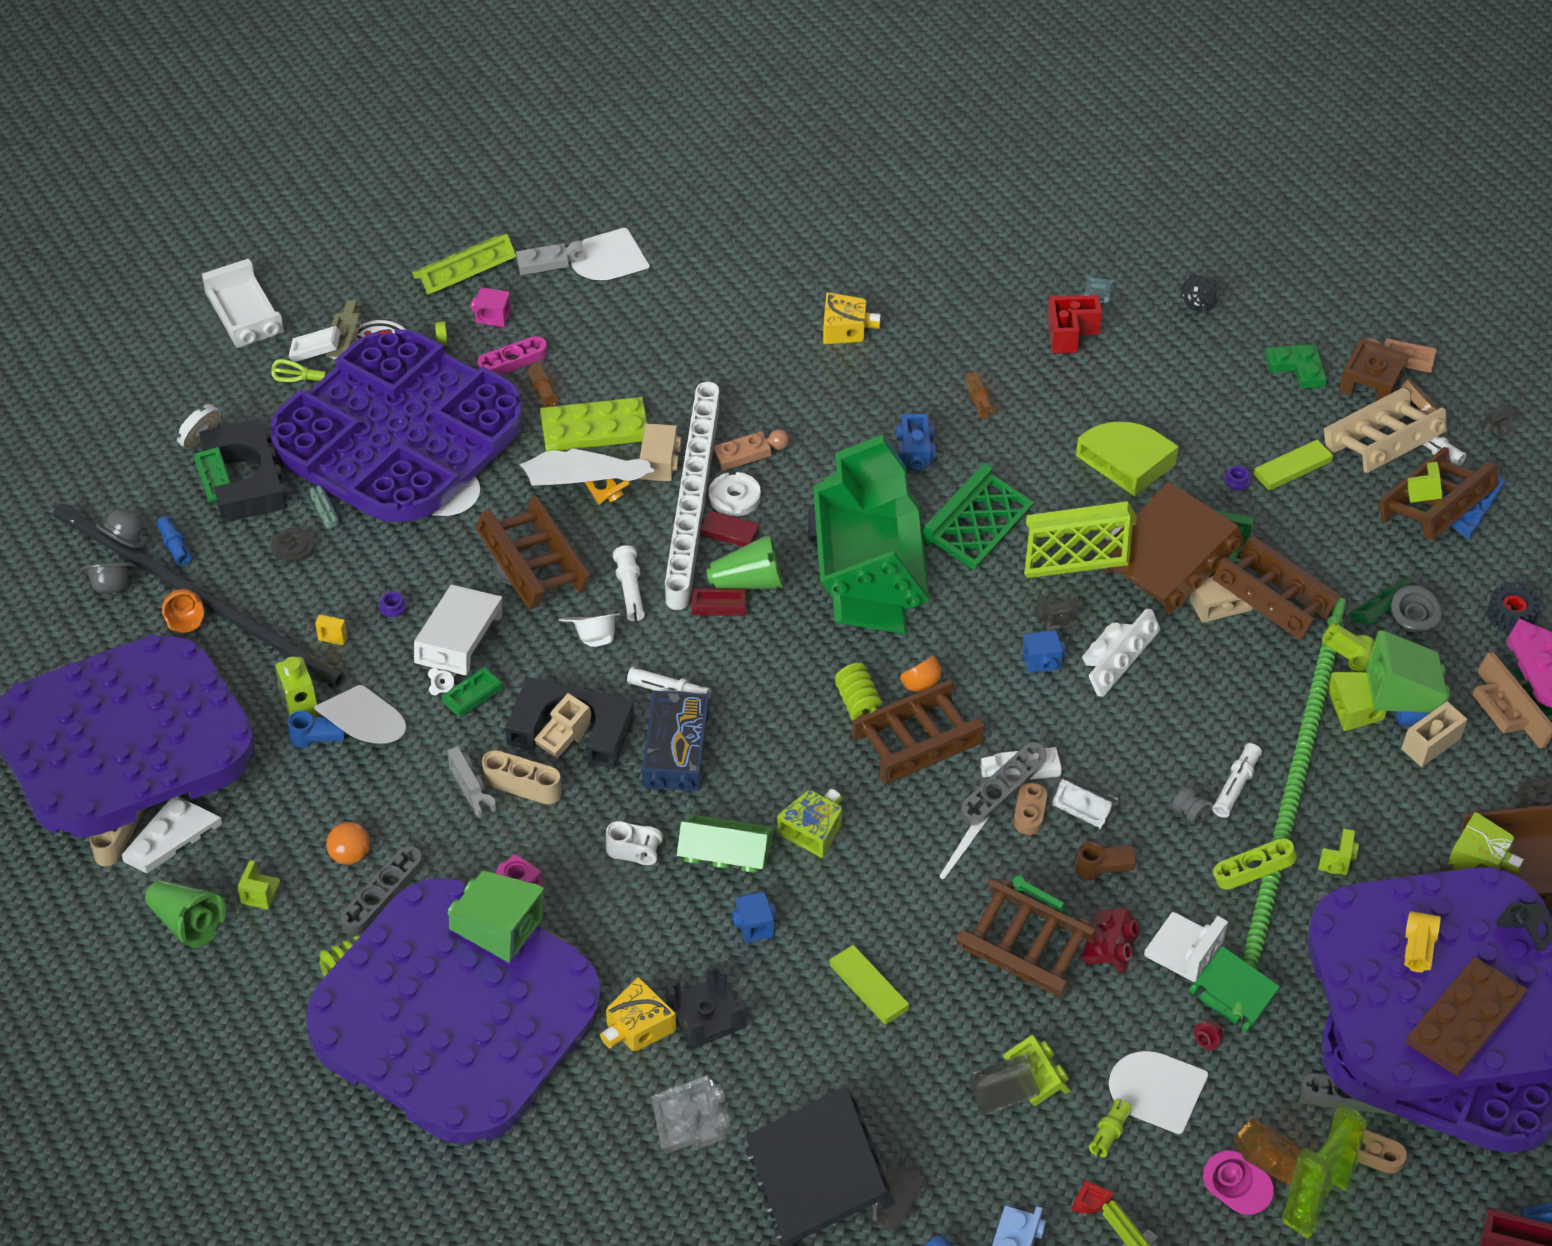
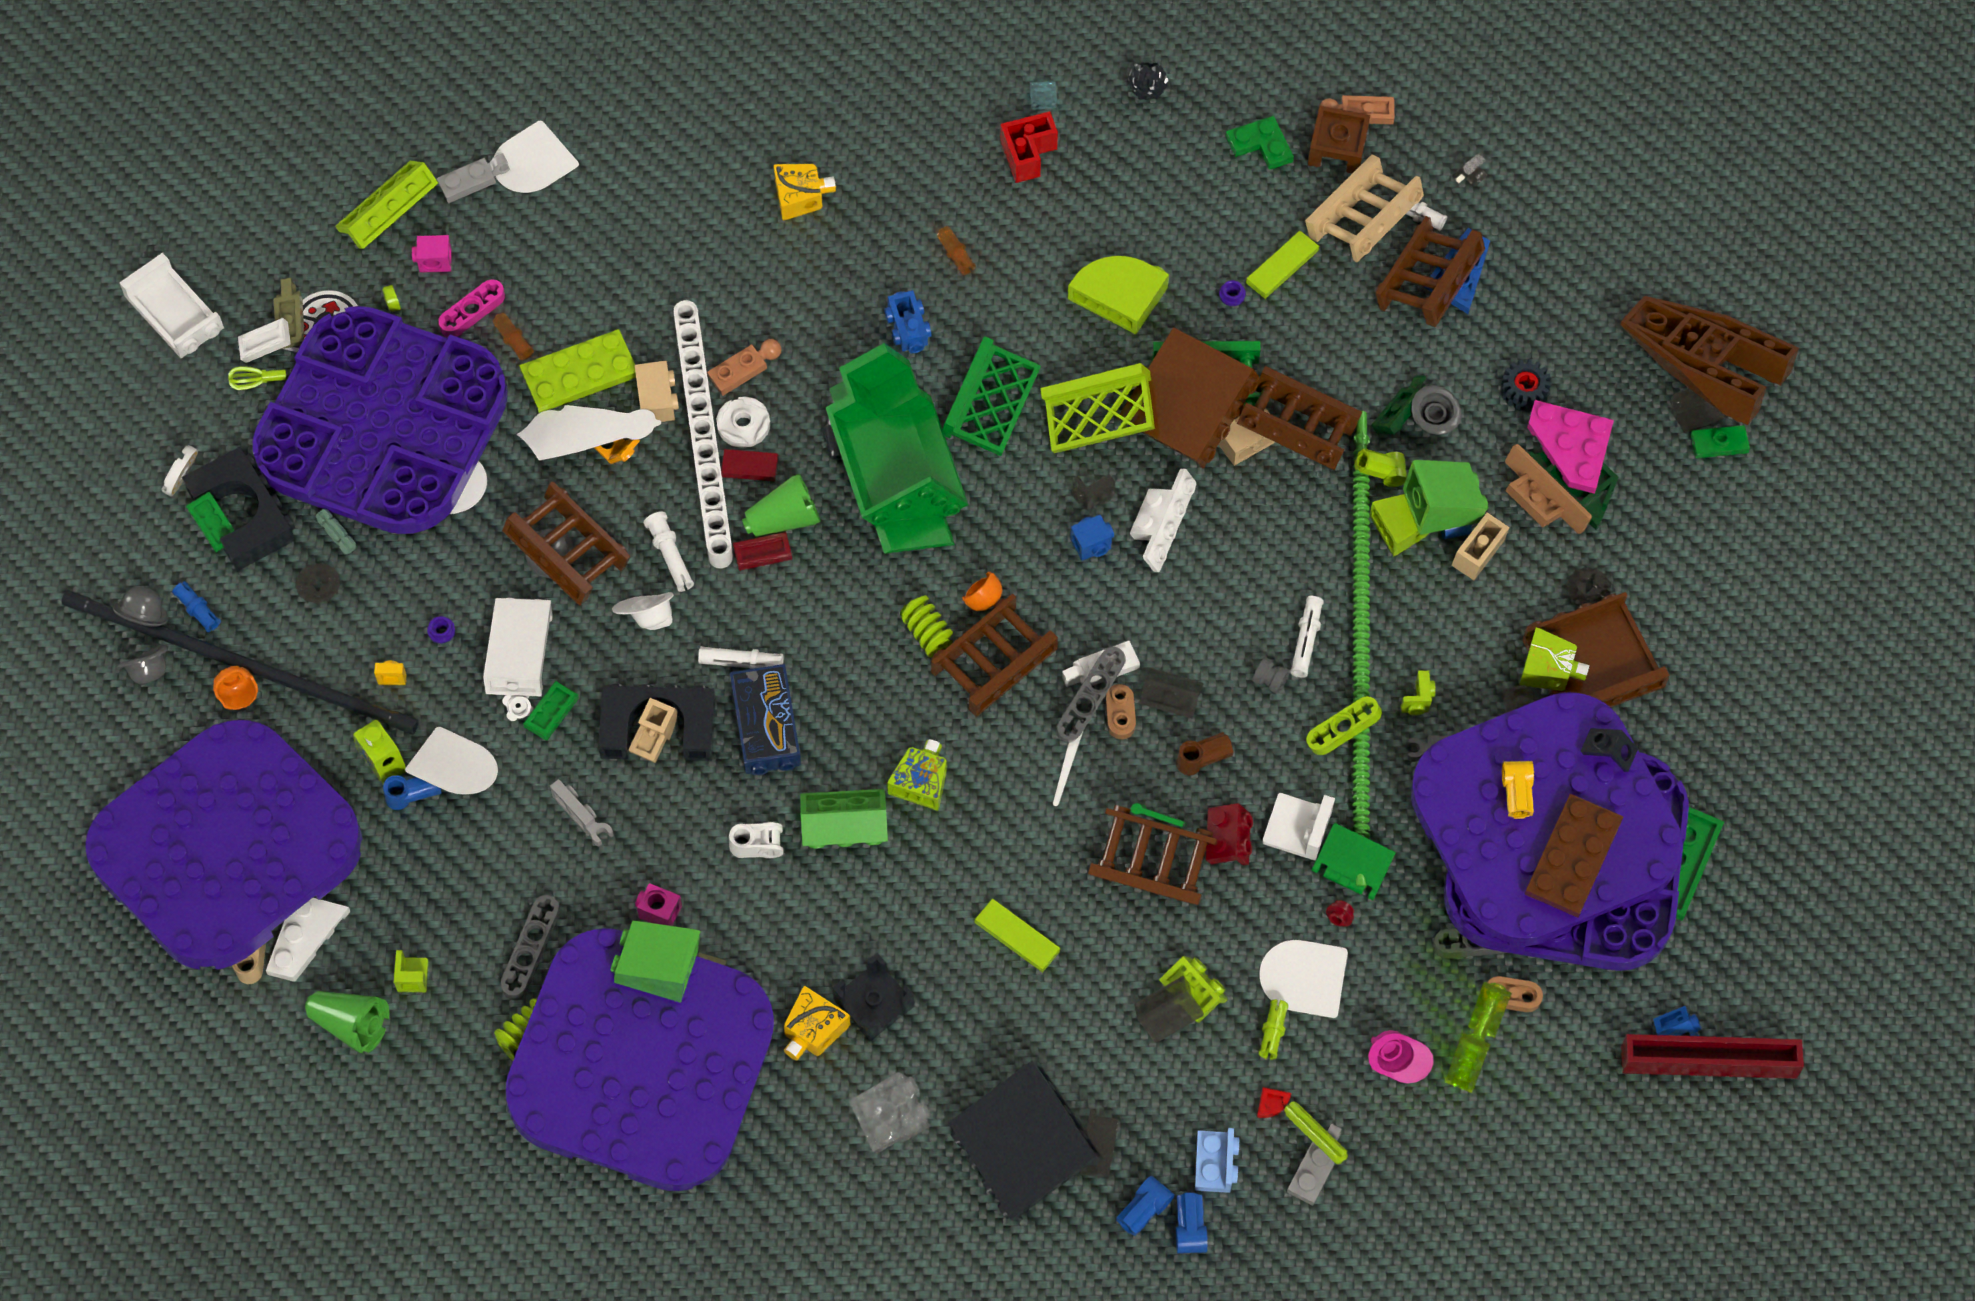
camera: 15 degrees left, 15 degrees up
(348, 843) = (482, 905): orange hair -> none
(521, 777) = (617, 786): tan beam -> none
(754, 917) = (892, 891): blue brick -> none
(1268, 1150) = (1424, 1023): clear orange brick -> none
(1417, 396) = (1393, 163): medium nougat plate -> none
(1425, 487) = (1419, 271): lime panel -> none

